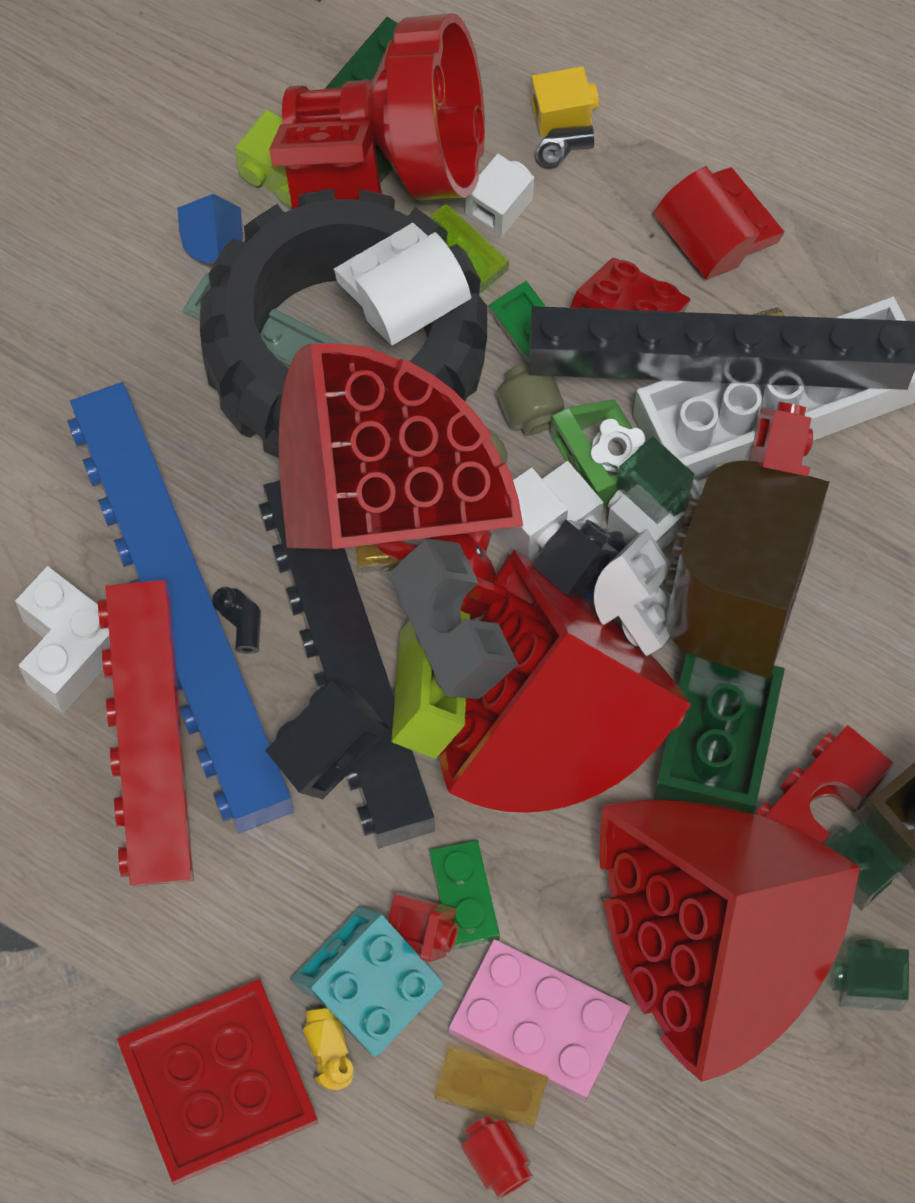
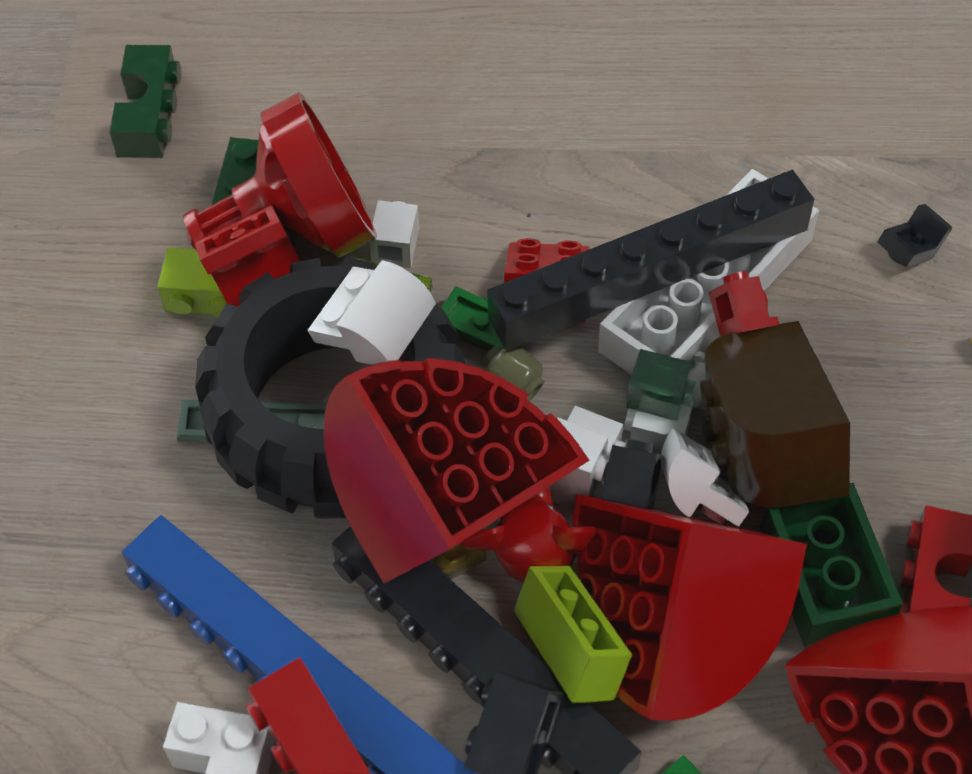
camera: 25 degrees left, 10 degrees down
(209, 226) = (166, 362): blue brick -> none
(241, 613) = (372, 664): black arm -> none
(466, 654) = (537, 553): dark grey arch -> none
(560, 142) = (418, 175): black arm -> none
(562, 99) = (403, 145): yellow brick -> none
(576, 449) = (566, 392): bright green tile -> none
(611, 431) = (613, 369): white brick -> none
(717, 220) = (575, 180): red brick -> none

